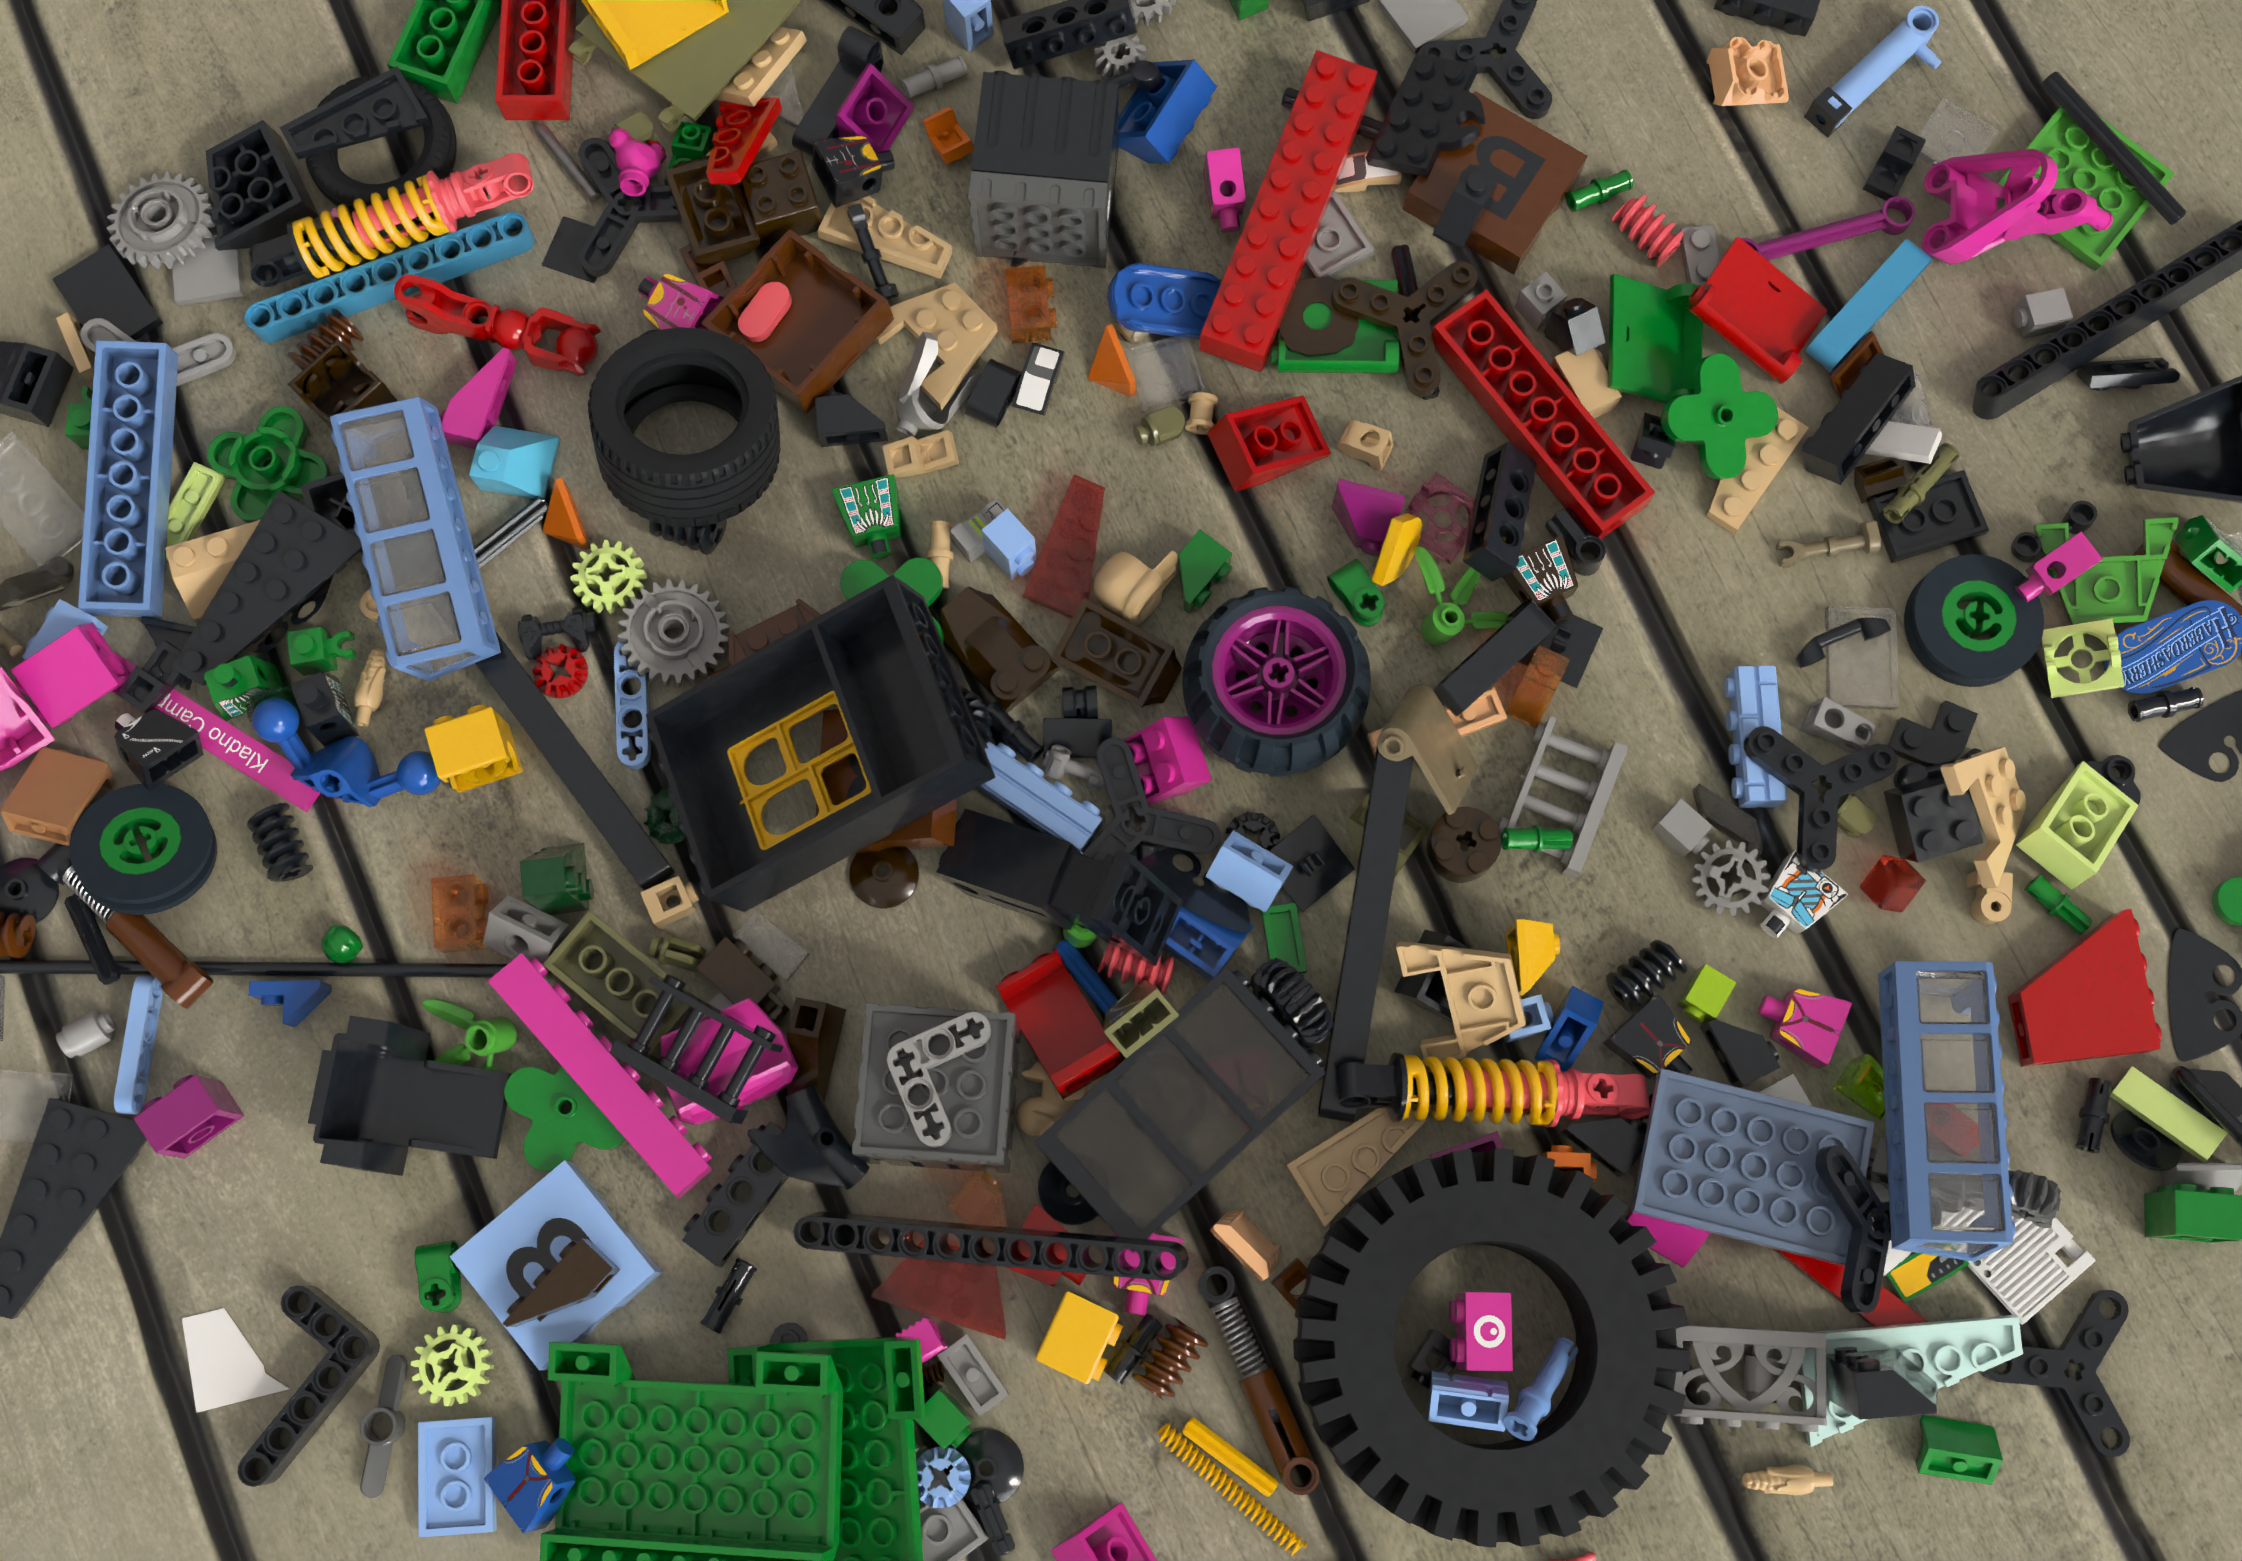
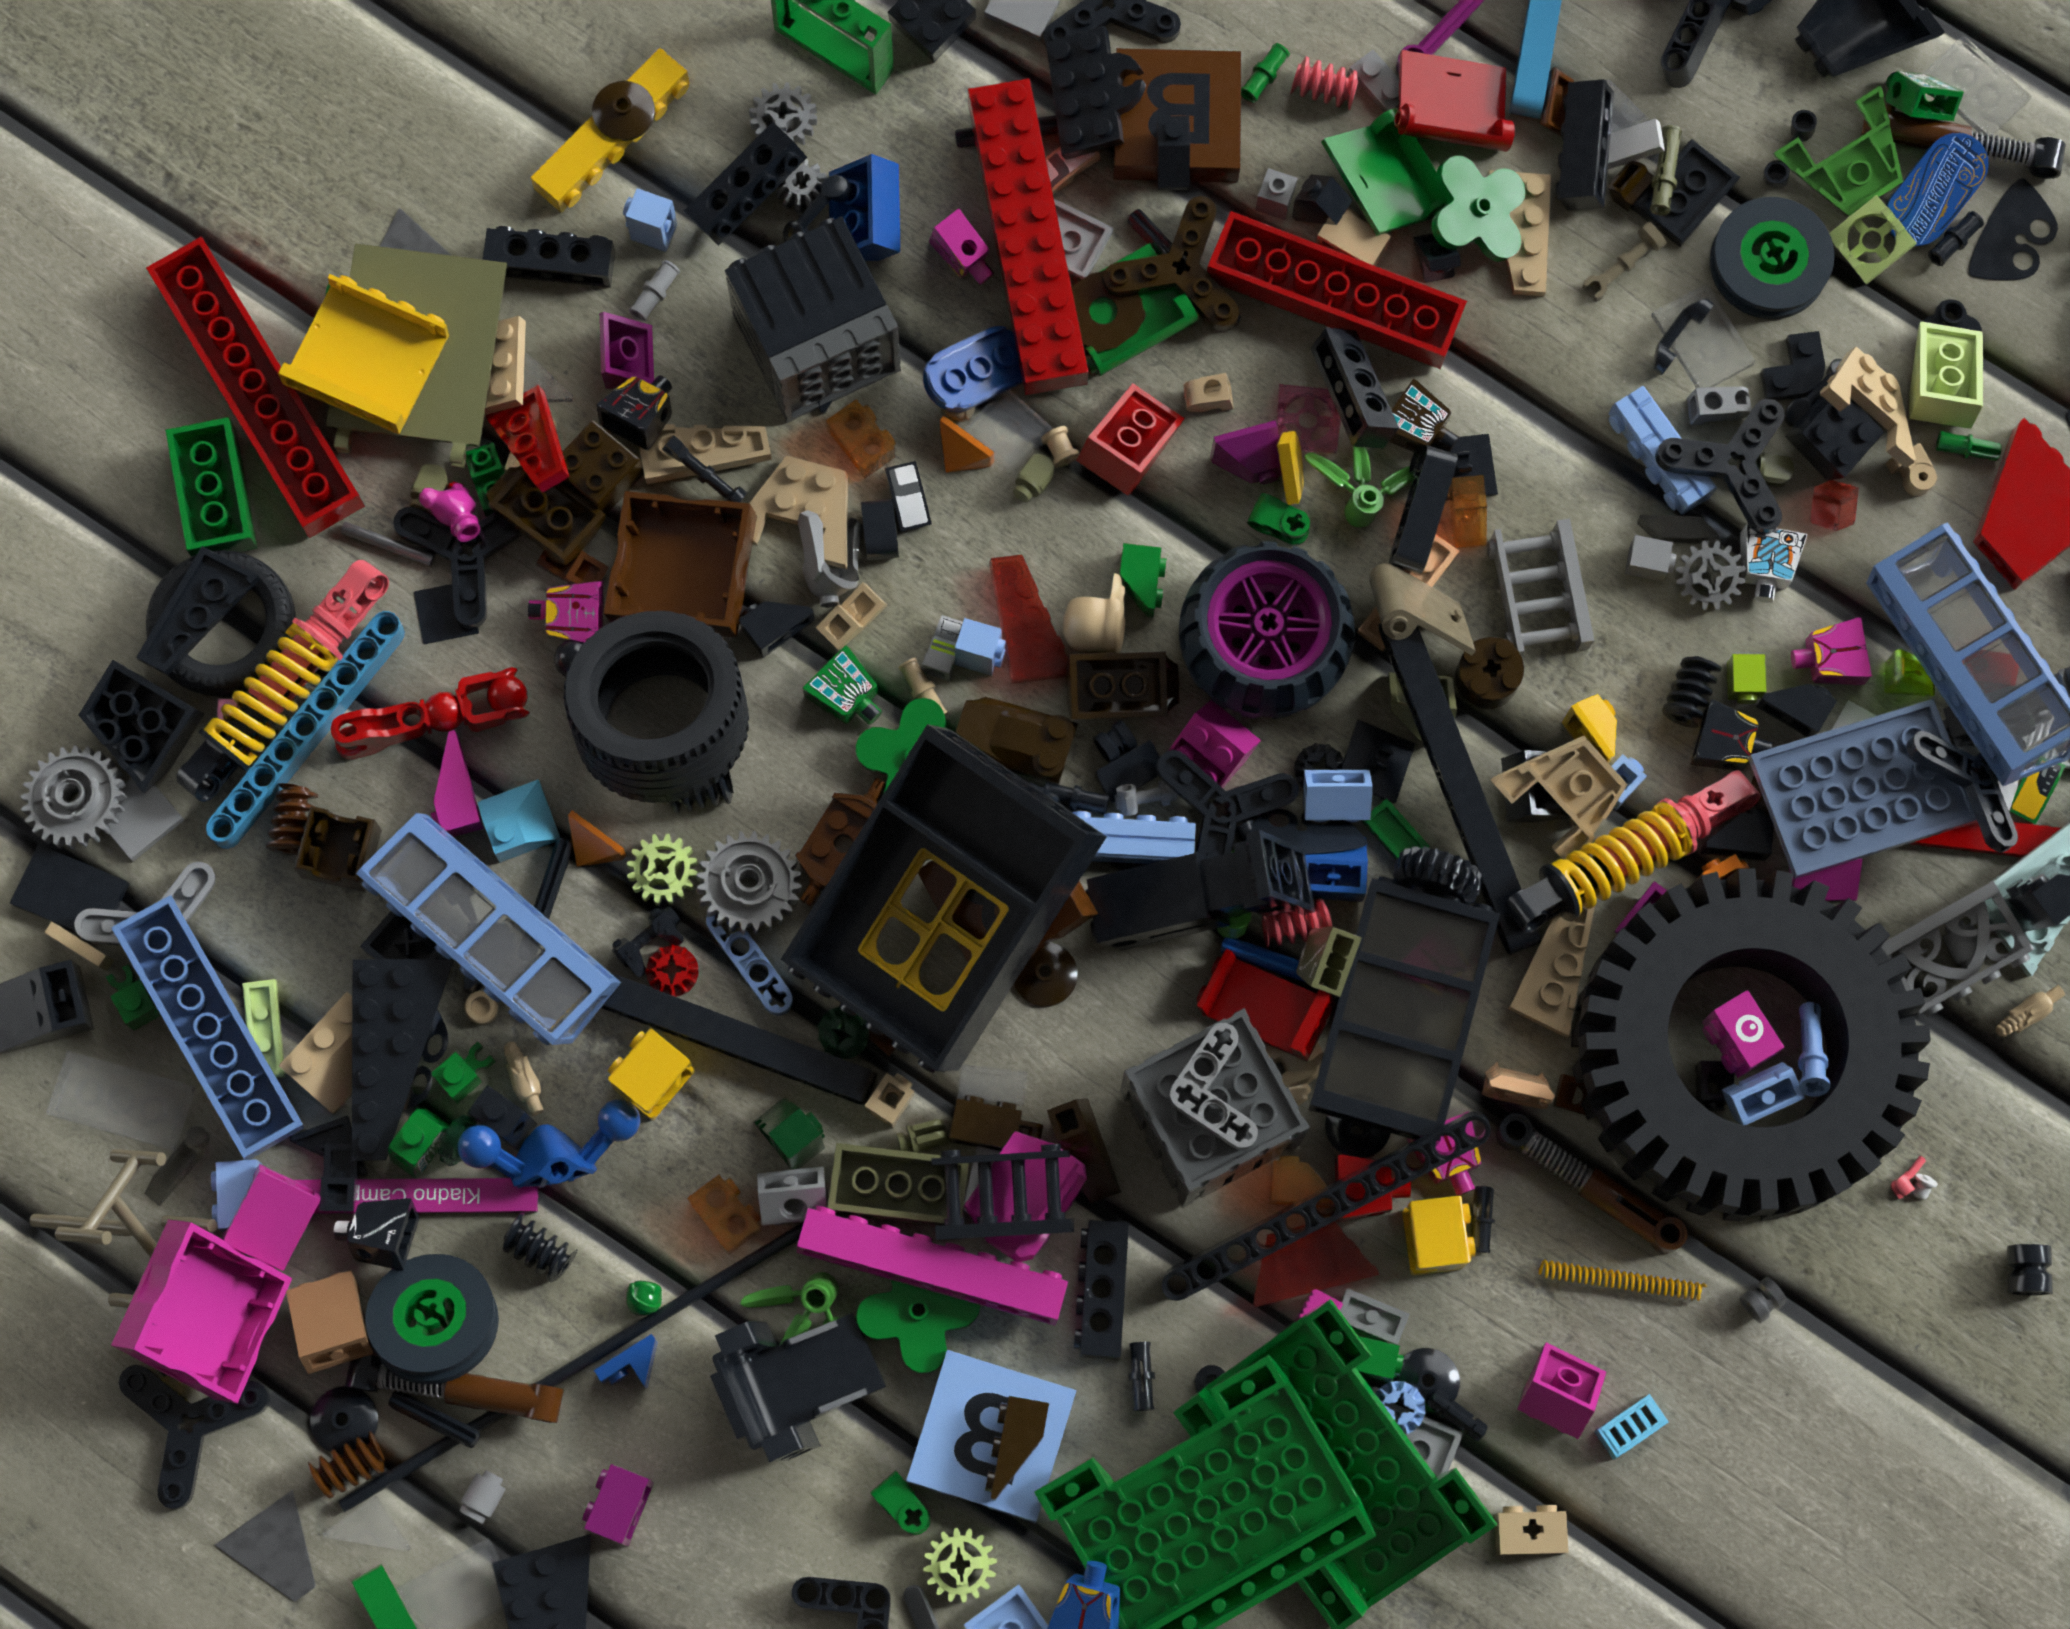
camera: 35 degrees left, 0 degrees up
(138, 1045) = (531, 1478): light blue beam -> none
(266, 462) = (303, 924): green plant -> none
(764, 311) = (645, 573): coral tile -> none
(801, 1152) = (1133, 1217): black pin -> none
(819, 122) = (585, 355): black beam -> none
(947, 136) = (700, 336): orange bracket -> none
(1170, 1359) = (1515, 1210): reddish brown piece -> none
(1230, 1456) = (1606, 1255): yellow axle -> none
(1536, 838) = (1544, 634): green axle -> none
(1571, 1028) = (1661, 763): blue slope -> none
(1577, 540) = (1426, 373): black piece -> none
(2068, 562) = (1820, 168): dark pink torso -> none

